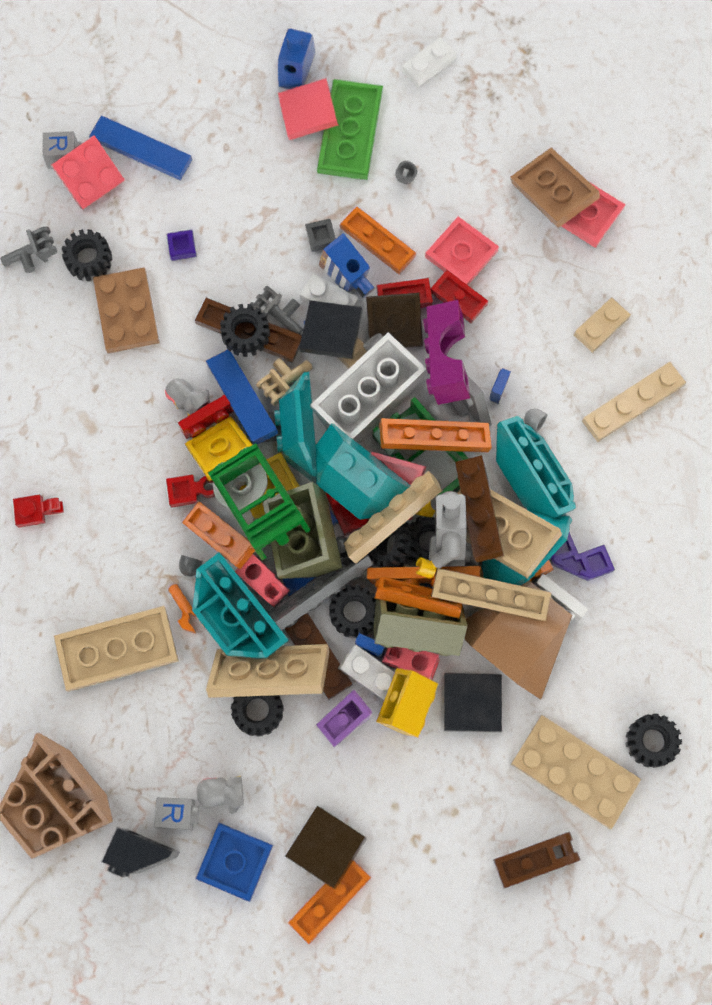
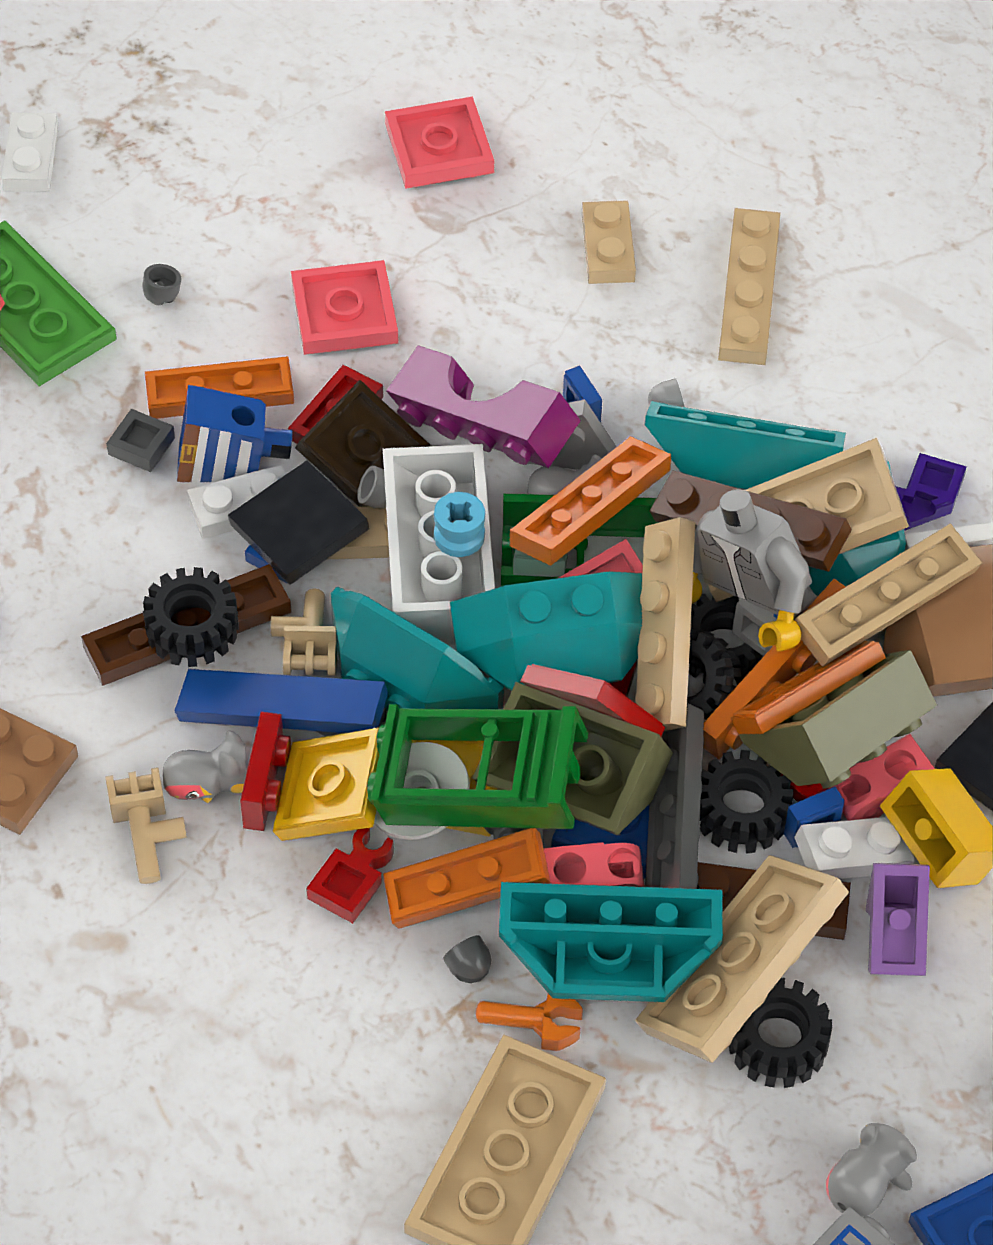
camera: 50 degrees left, 20 degrees down
(32, 509) = (167, 1115): red plate -> none
(141, 397) = (138, 809): none -> tan arm
(283, 315) = (169, 557): dark grey arm -> none
(329, 519) = (590, 693): none -> red tile
(370, 401) = (467, 531): none -> medium azure wheel
(451, 288) = (385, 354): red plate -> none
(555, 187) = (369, 143): medium nougat plate -> none

